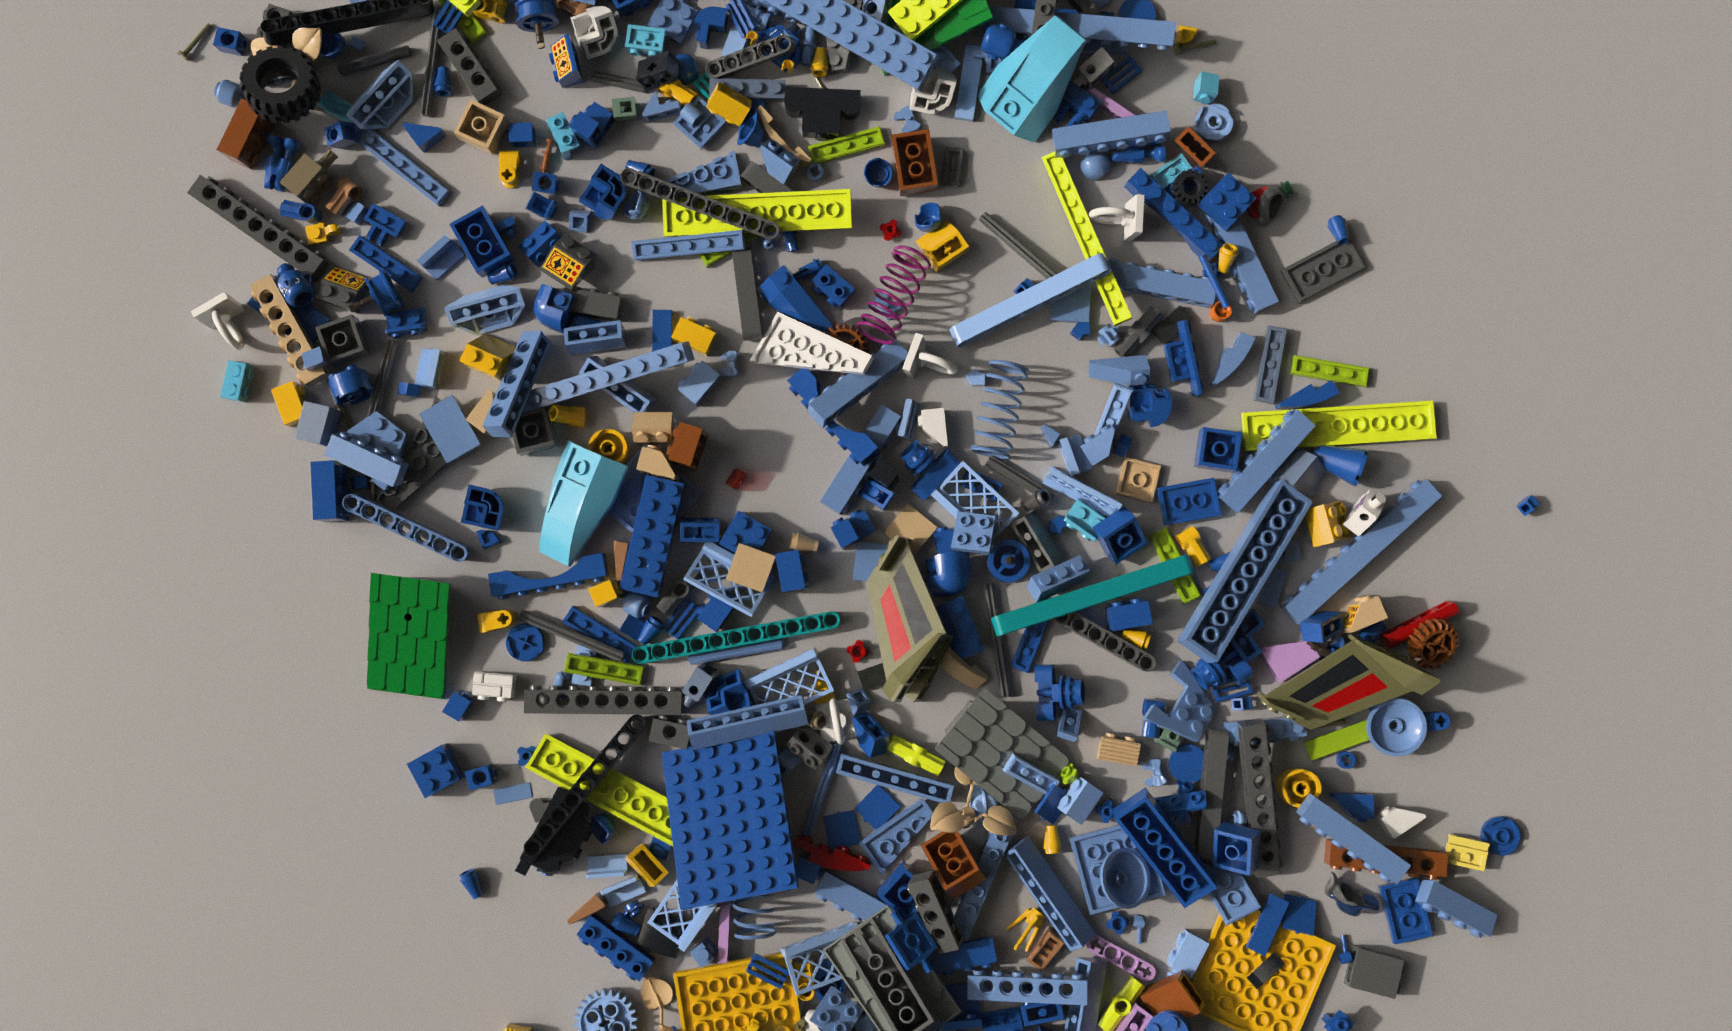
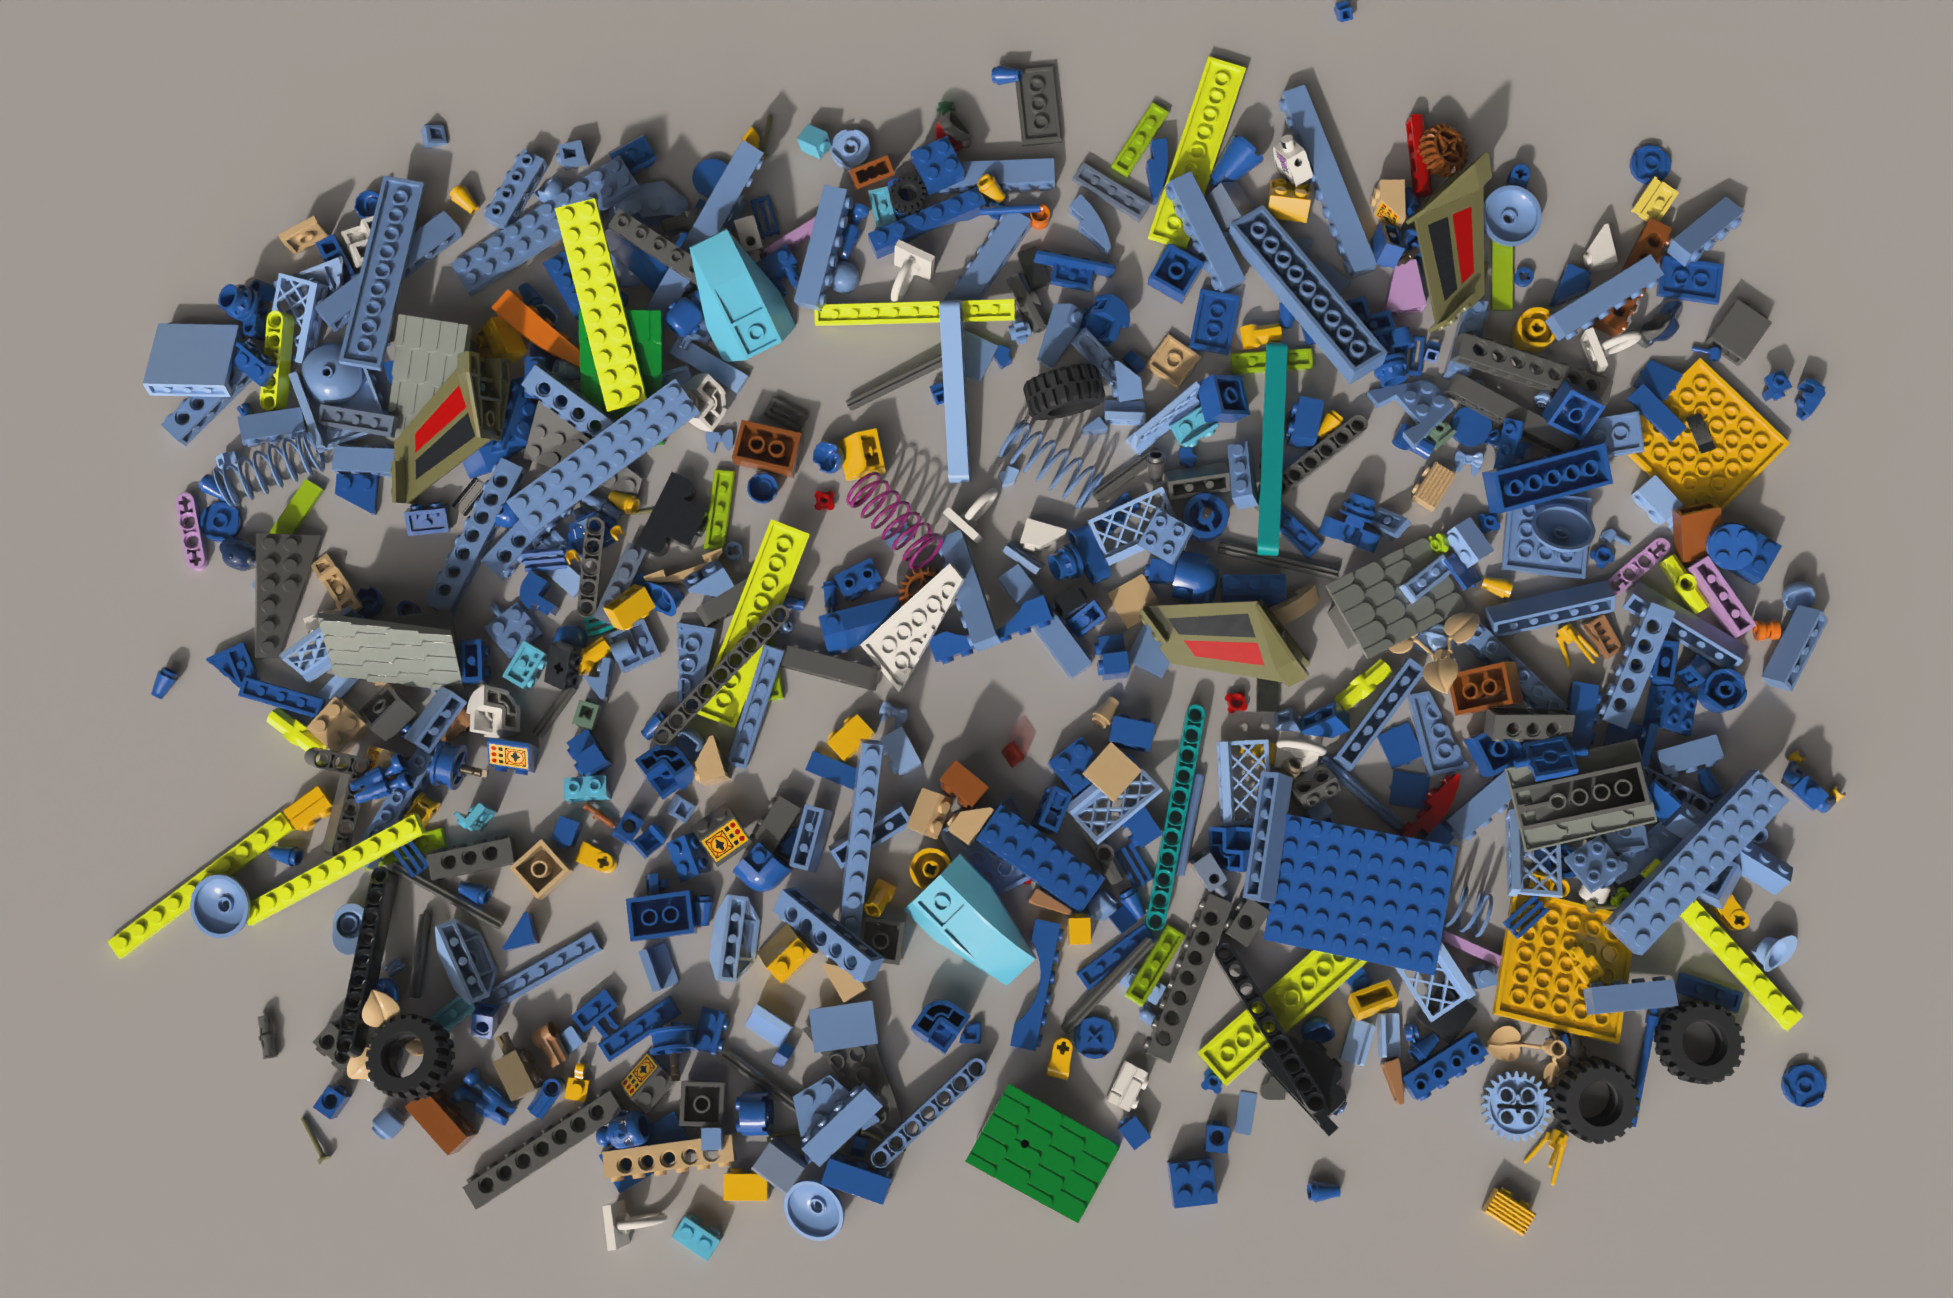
camera: 65 degrees left, 5 degrees down
(291, 466) = (808, 1215): none -> medium blue dish
(502, 54) = (478, 817): none -> medium azure bracket
(625, 228) = (711, 764): none -> tan slope
(1066, 393) = (1064, 392): none -> black tyre
(1303, 852) = (1598, 351): none -> white tile

